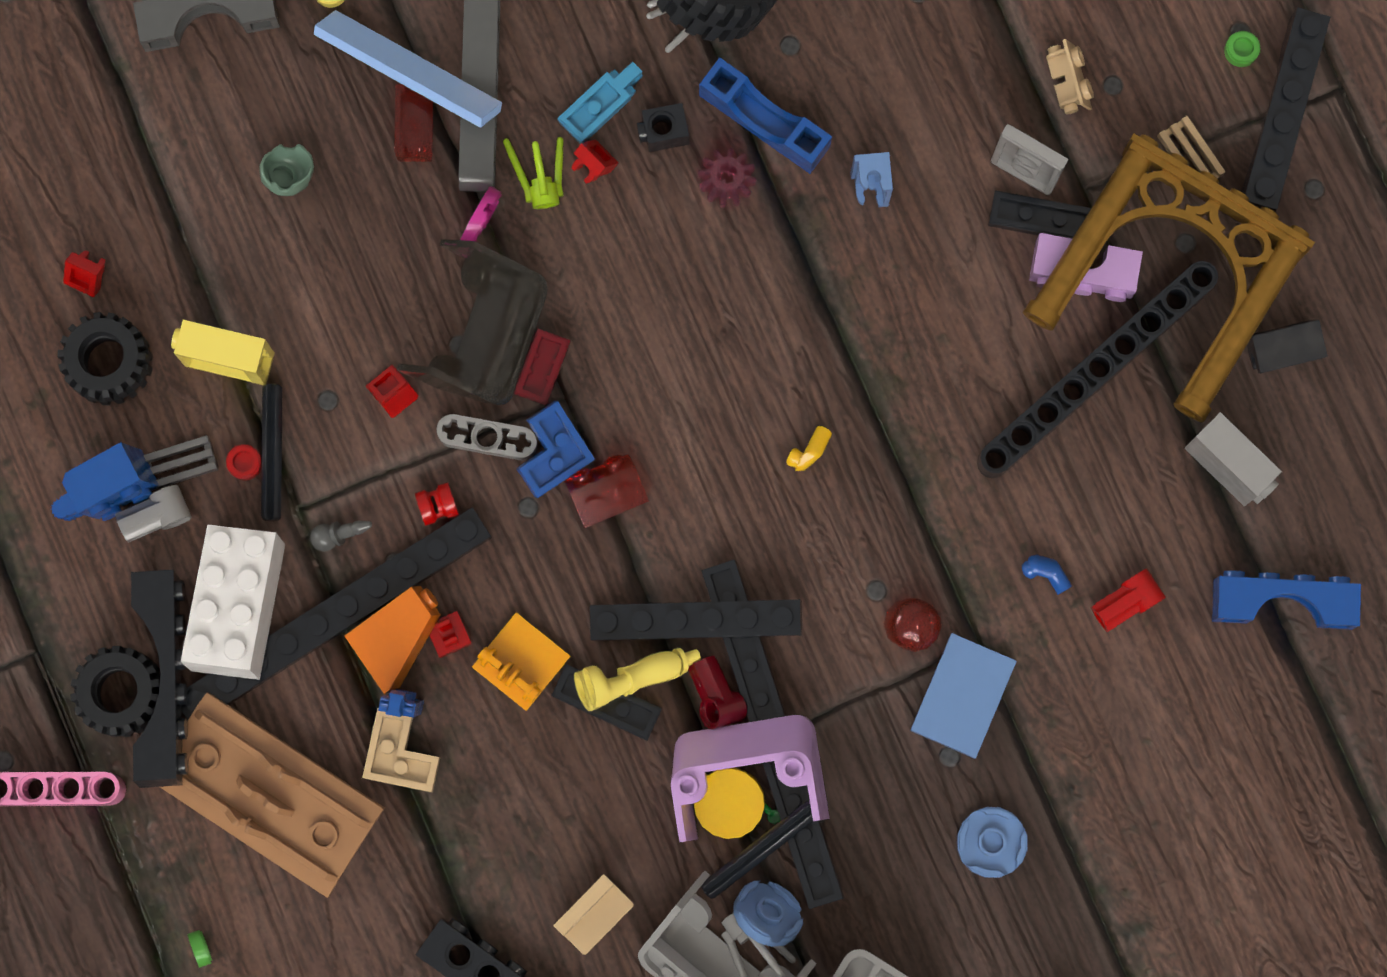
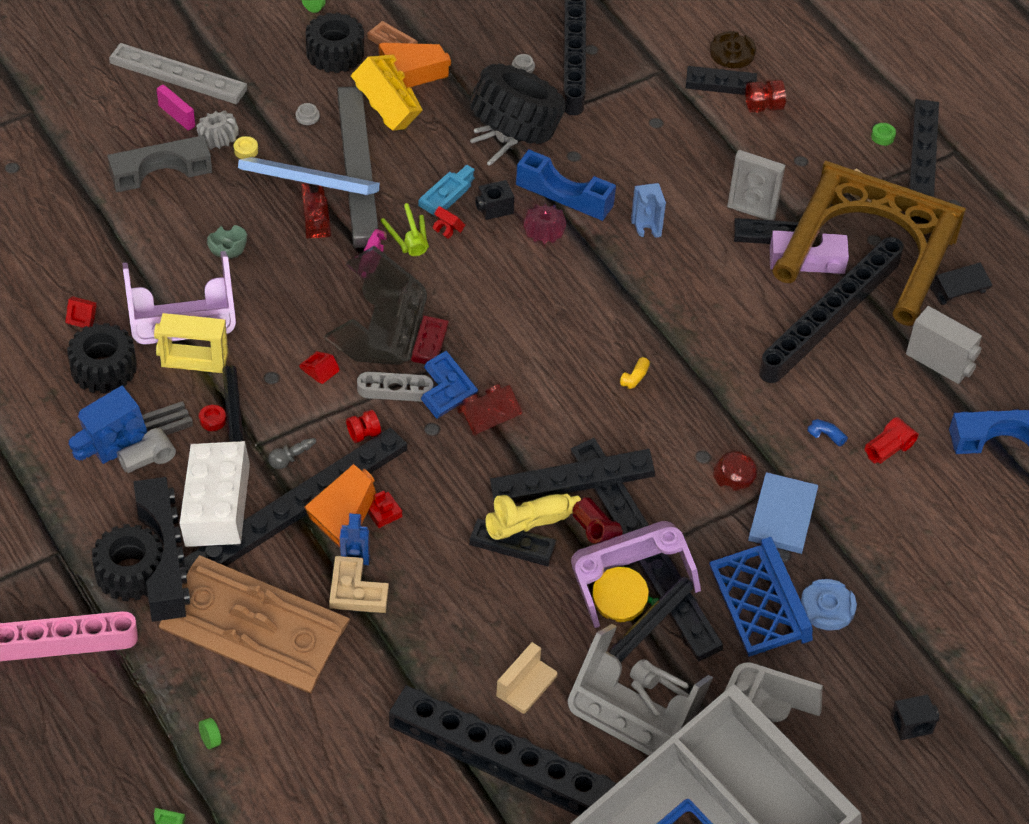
camera: 10 degrees left, 30 degrees down
(212, 292) = (145, 315): none -> lavender windscreen
(520, 661) = (441, 521): light orange hinge -> none
(768, 913) = (666, 658): medium blue tile -> none
(936, 819) = (780, 584): none -> blue fence
(1068, 64) = (768, 146): tan hinge -> none

